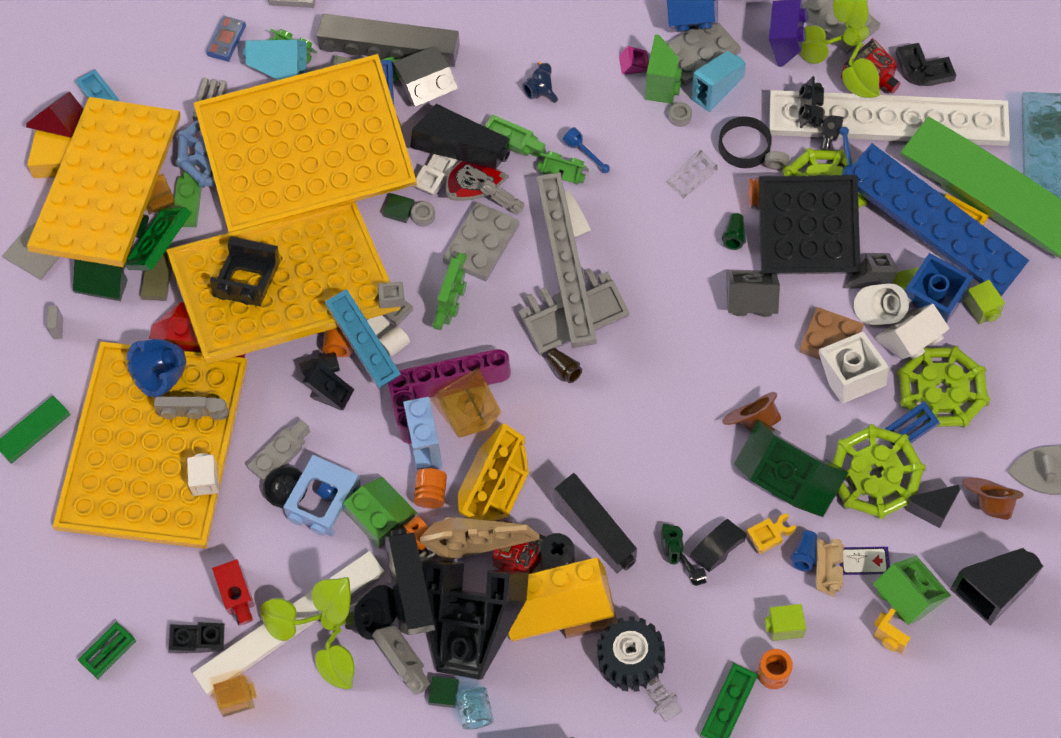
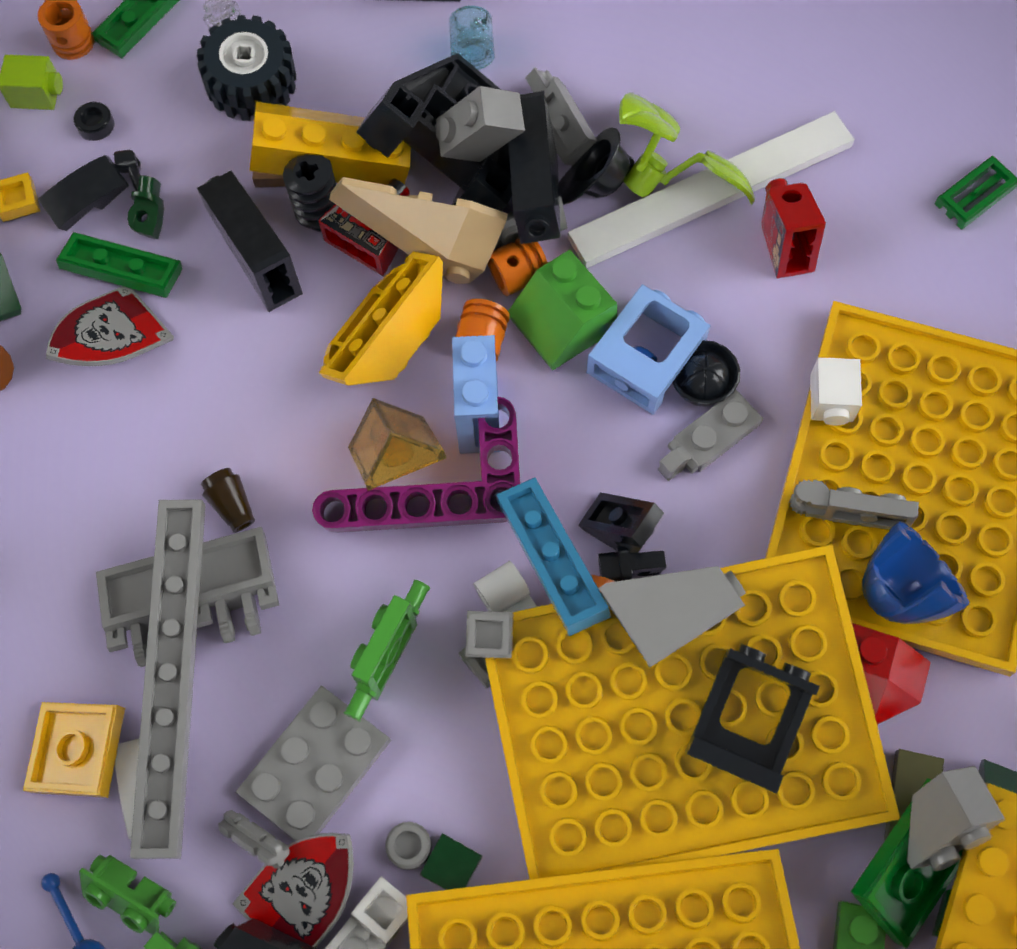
camera: 170 degrees left, 5 degrees up
(140, 242) = (950, 816): none -> light grey slope
(196, 638) = (851, 190): black slope -> none
(235, 695) = (795, 99): clear yellow brick -> none
(291, 312) = (672, 607): none -> light grey slope
(443, 692) = (510, 72): dark green tile -> none
(446, 592) = (480, 124): none -> light grey brick
(611, 225) = (74, 749): none -> yellow tile
(669, 451) = (107, 331): none -> shield
(679, 502) = (119, 264): none -> green tile
(733, 607) = (94, 121): none -> black tile

